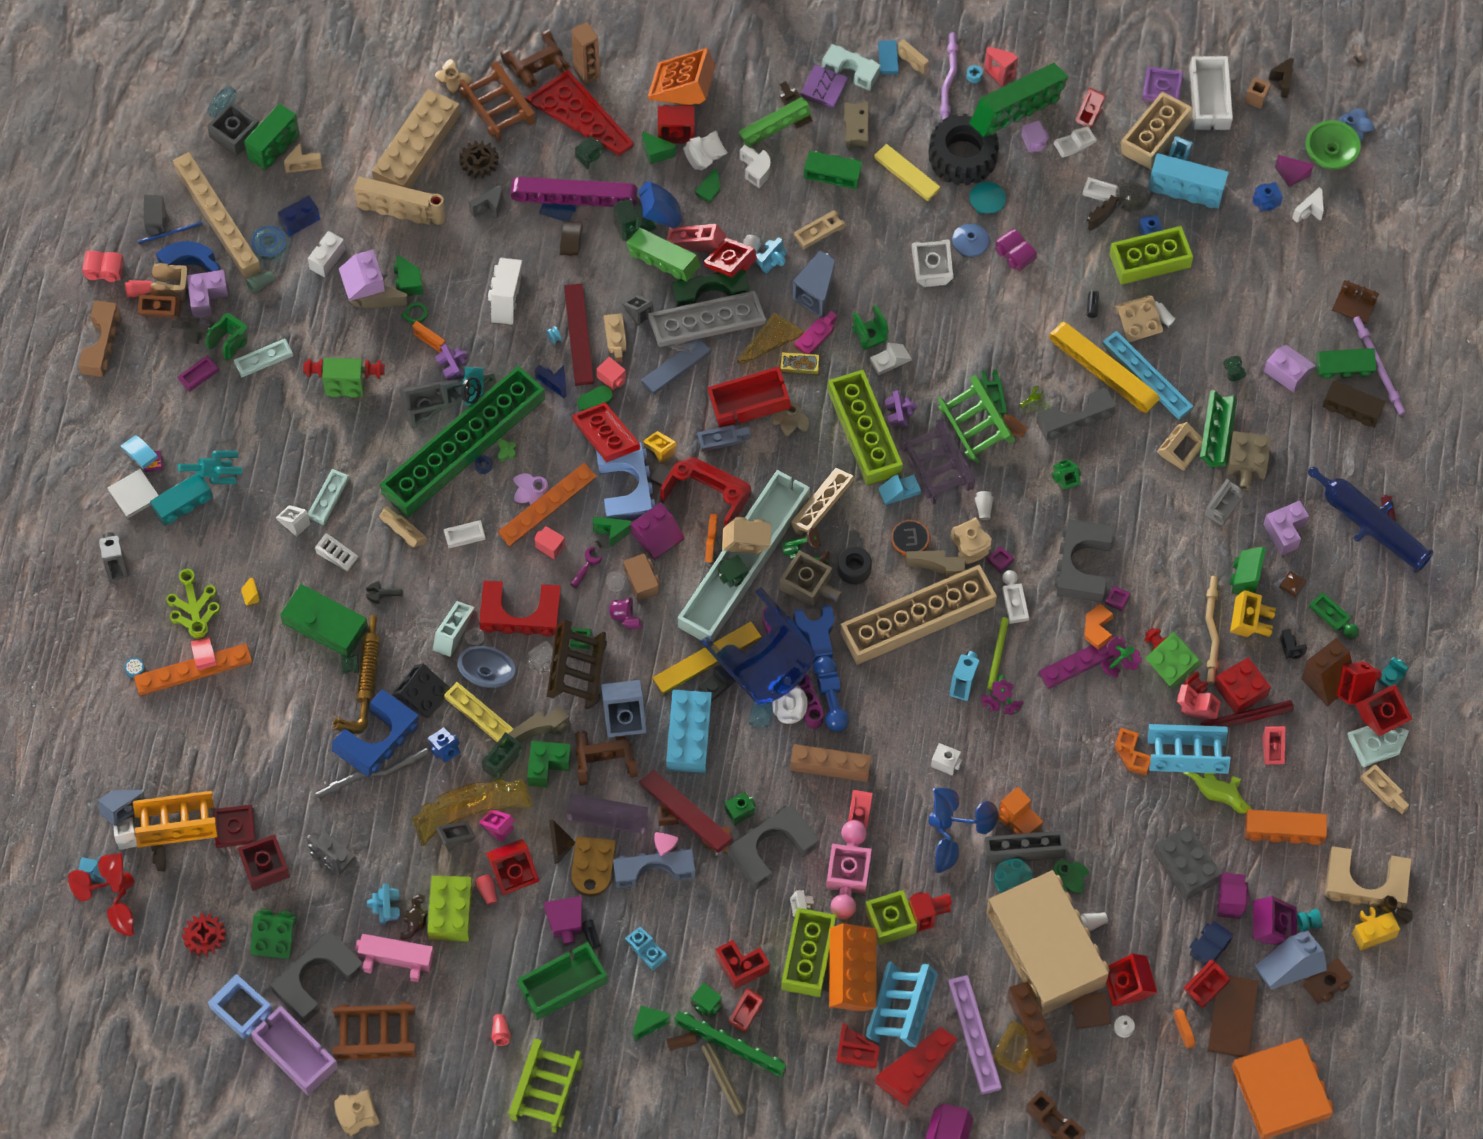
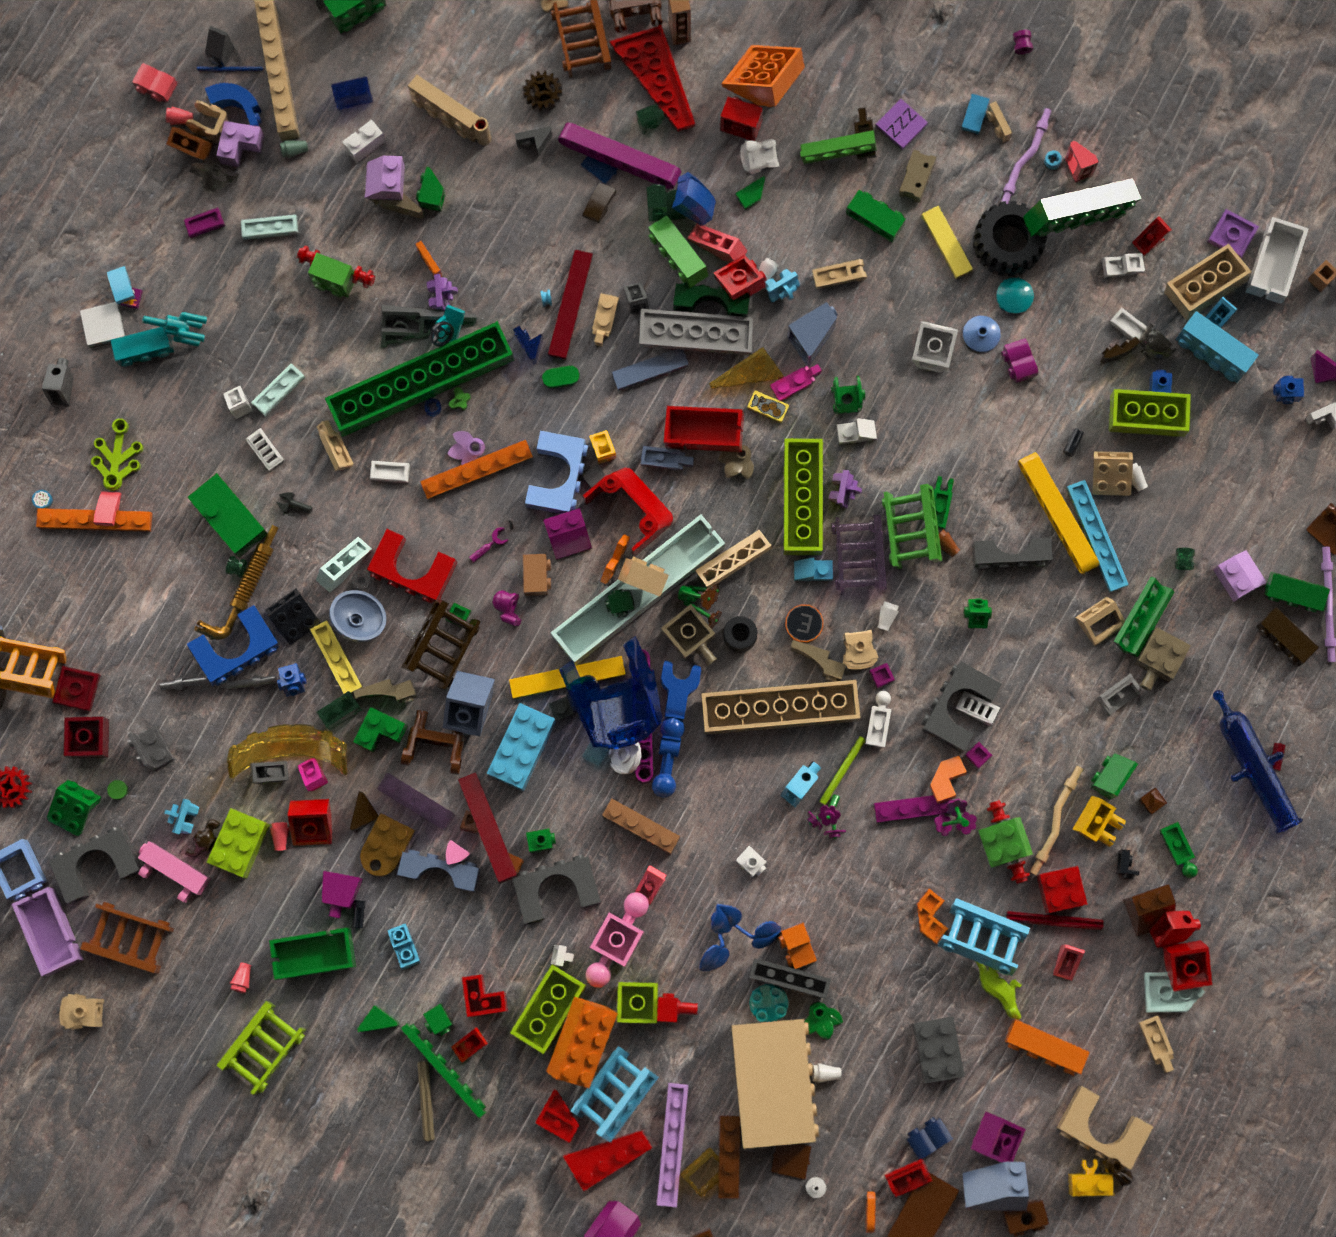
camera: 25 degrees right, 15 degrees up
(95, 358) = (114, 175): medium nougat arch -> none
(236, 340) = (242, 205): green piece -> none
(250, 592) = (173, 462): yellow slope -> none
(265, 233) = (313, 100): clear light blue tile -> none
(297, 162) = (372, 35): tan slope -> none
(311, 903) = (117, 789): none -> bright green tile
(405, 315) = (416, 229): green piece -> none
(417, 140) = (489, 53): tan brick -> none
(505, 289) = (516, 235): white wedge -> none
(549, 542) = (463, 509): coral brick -> none
(606, 432) = (555, 417): red plate -> none
(611, 374) = (584, 358): coral brick -> none
(617, 528) = (531, 518): green slope -> none
(657, 148) = (715, 137): green slope -> none
(681, 1041) = (401, 1049): reddish brown piece -> none
(759, 165) = (806, 190): white brick -> none
(839, 59) = (925, 100): light aqua arch -> none
(1034, 136) = (1085, 247): lavender brick -> none
(1034, 396) = (978, 518): clear neon green hand -> none
(1108, 552) = (988, 721): none -> white slope
(1130, 980) = (838, 1146): red slope -> none
(1198, 705) = (1012, 893): coral brick -> none
(1232, 896) = (967, 1098): magenta brick -> none
(1283, 525) = (1164, 741): lavender brick -> none
(1309, 920) = (1031, 1149): teal wheel -> none
(1393, 673) = (1213, 928): teal bracket -> none

